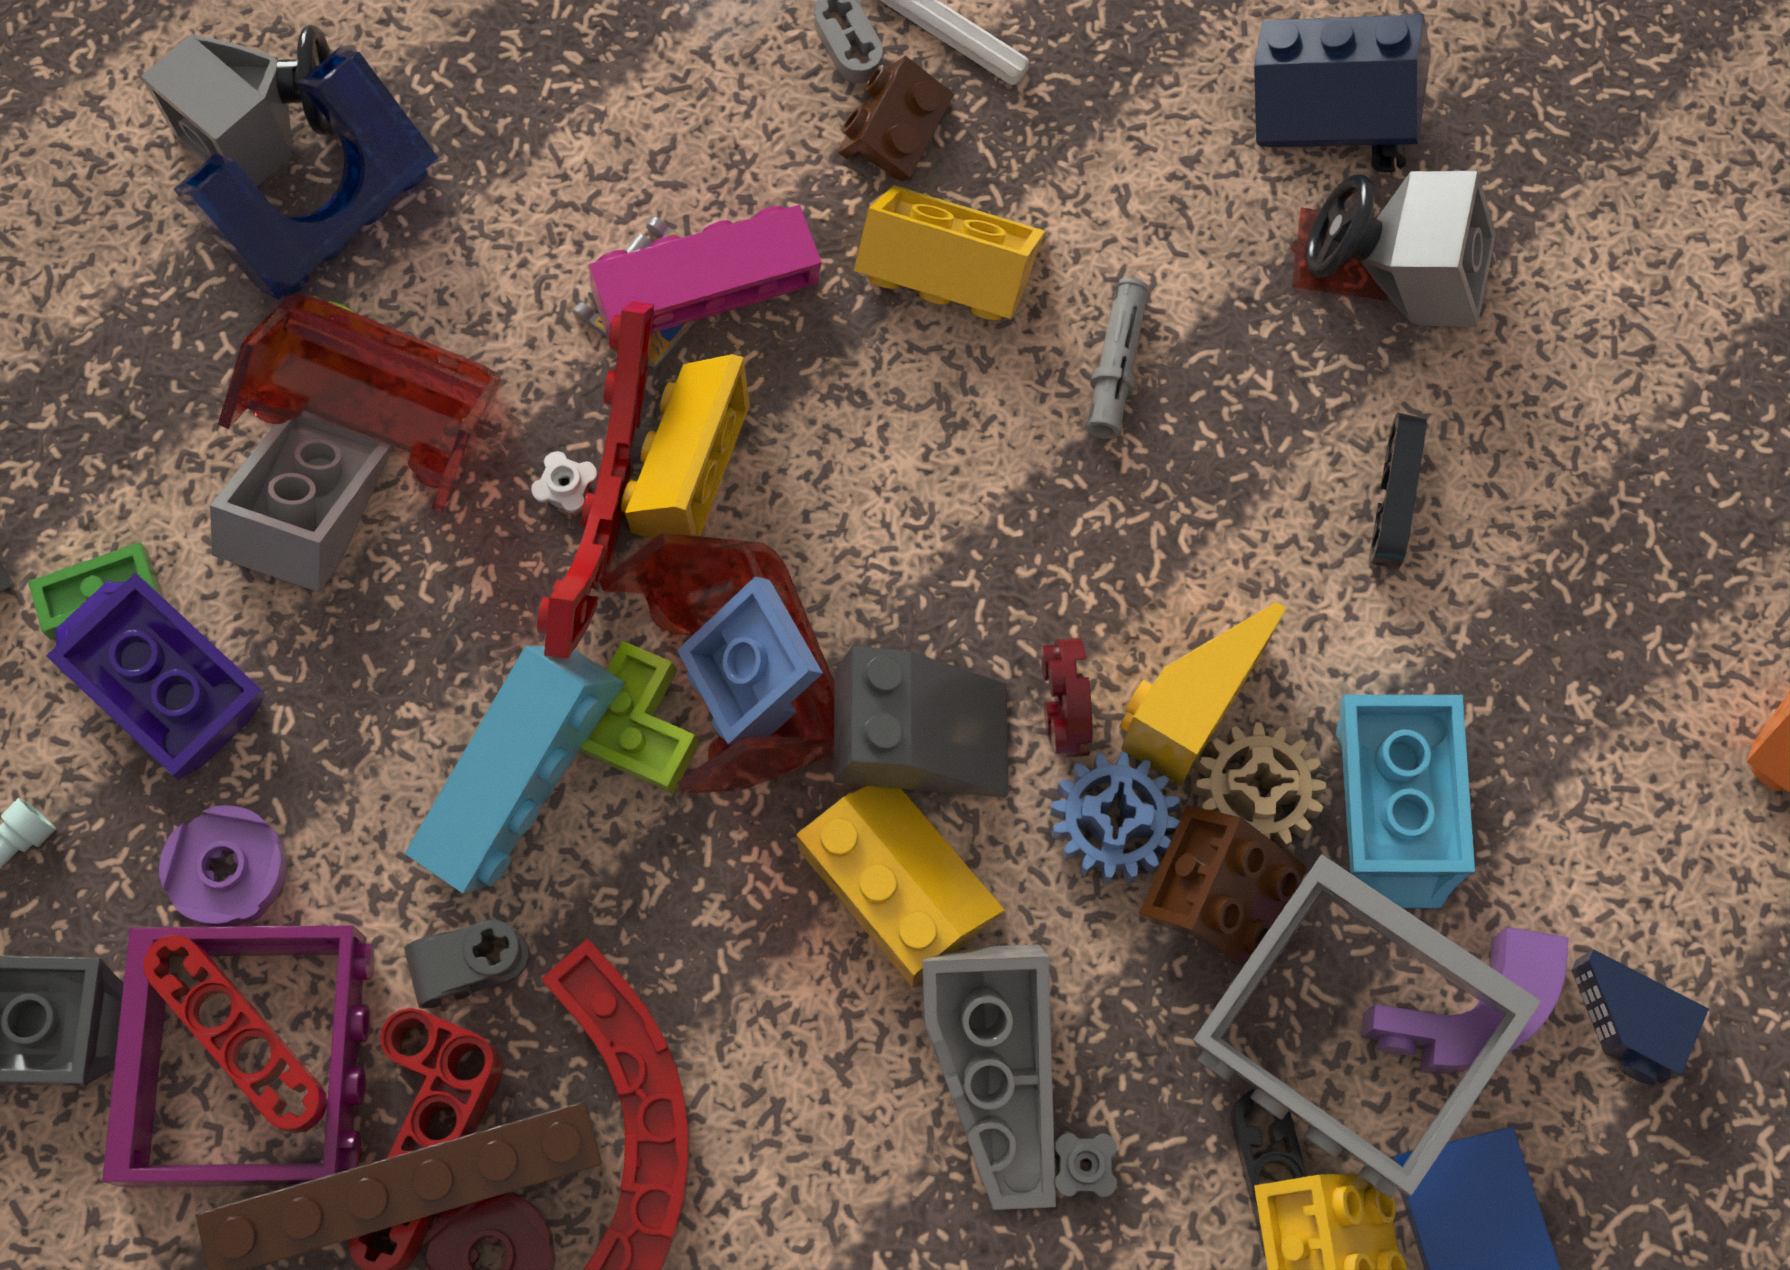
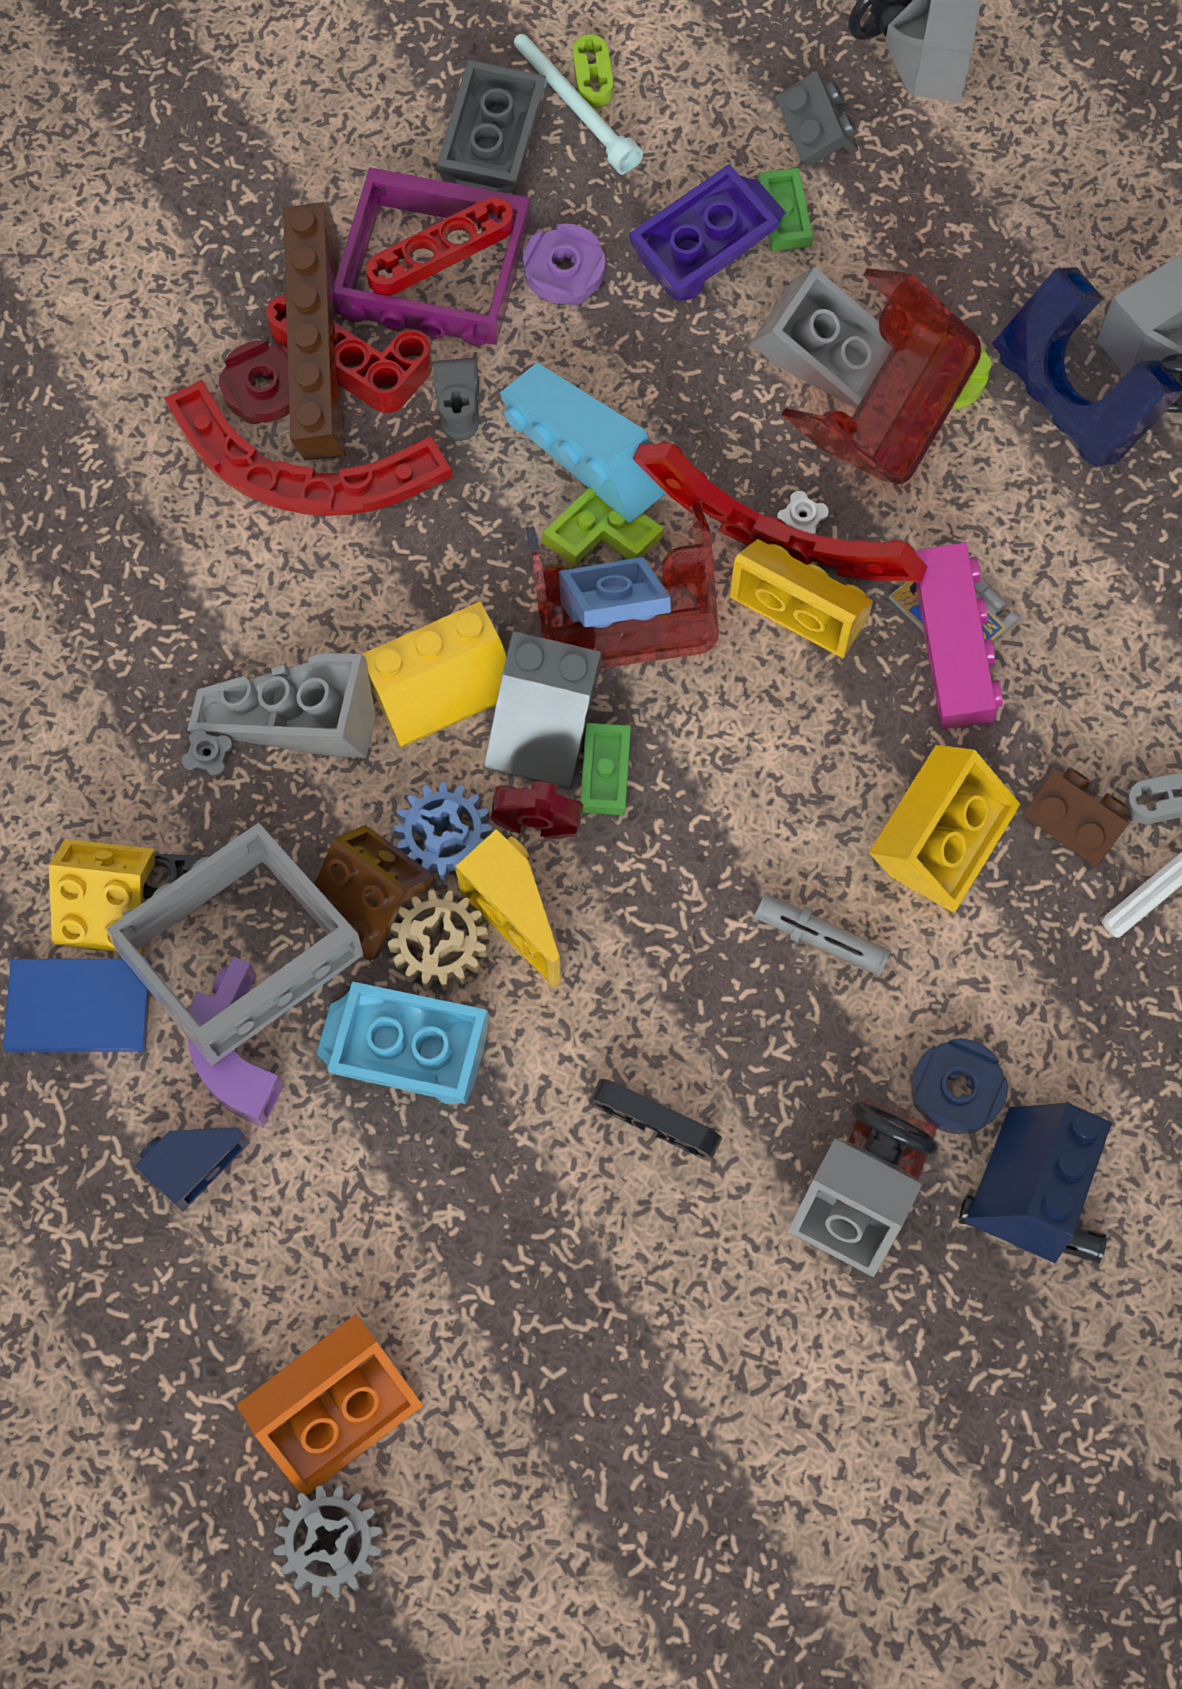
camera: 105 degrees right, 0 degrees up
(979, 638) = (605, 768): none -> bright green plate
(1249, 216) = (983, 1076): none -> dark blue plate

